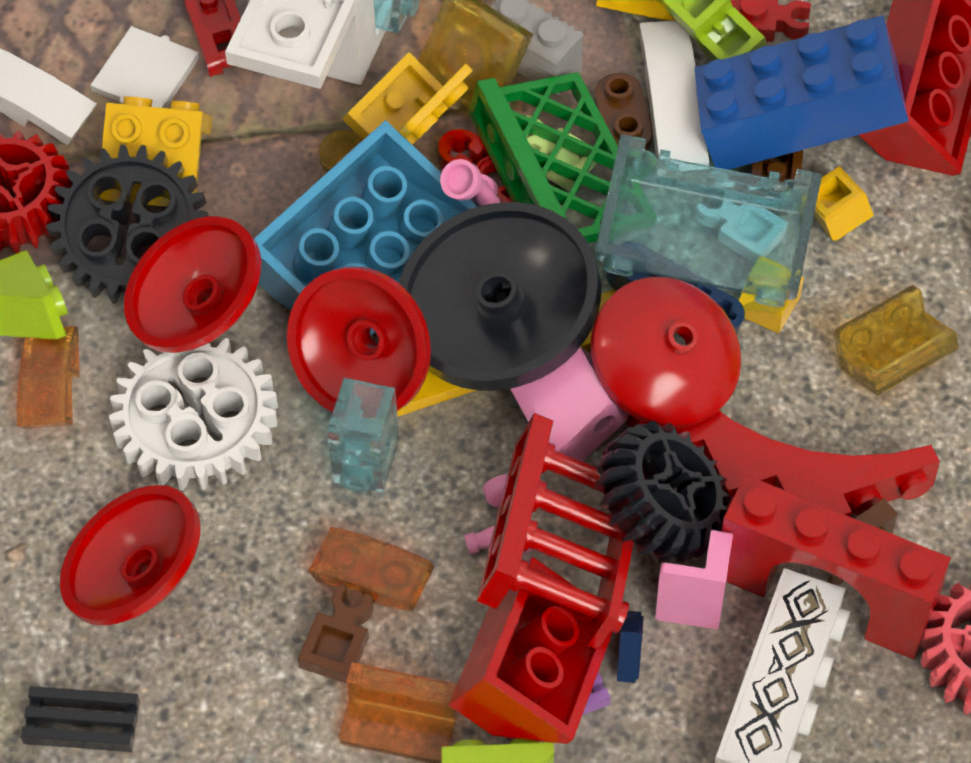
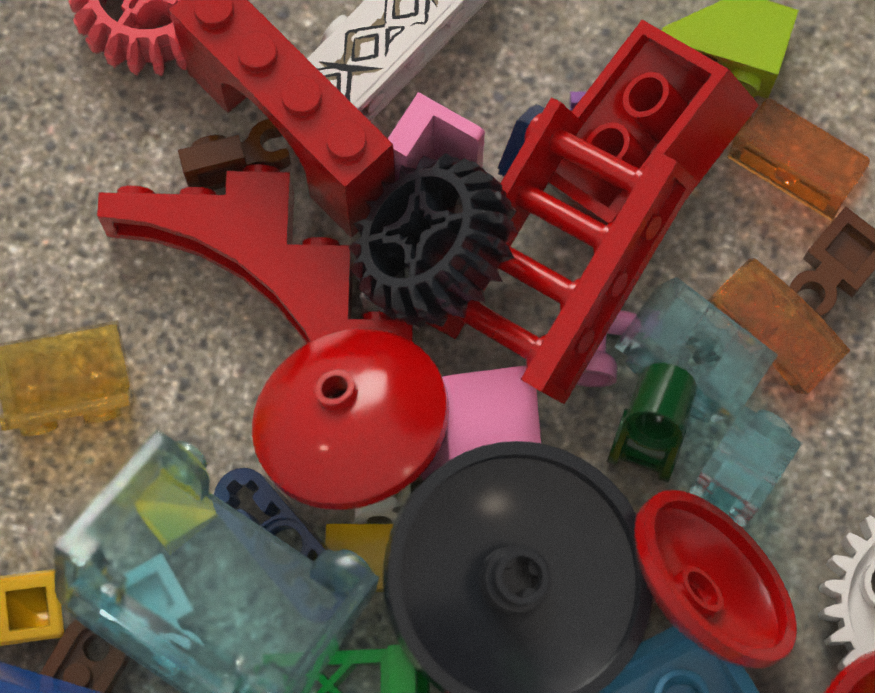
camera: 160 degrees left, 15 degrees up
(431, 515) = (726, 354): none -> clear light blue brick
(441, 446) = (655, 420): none -> dark green piece

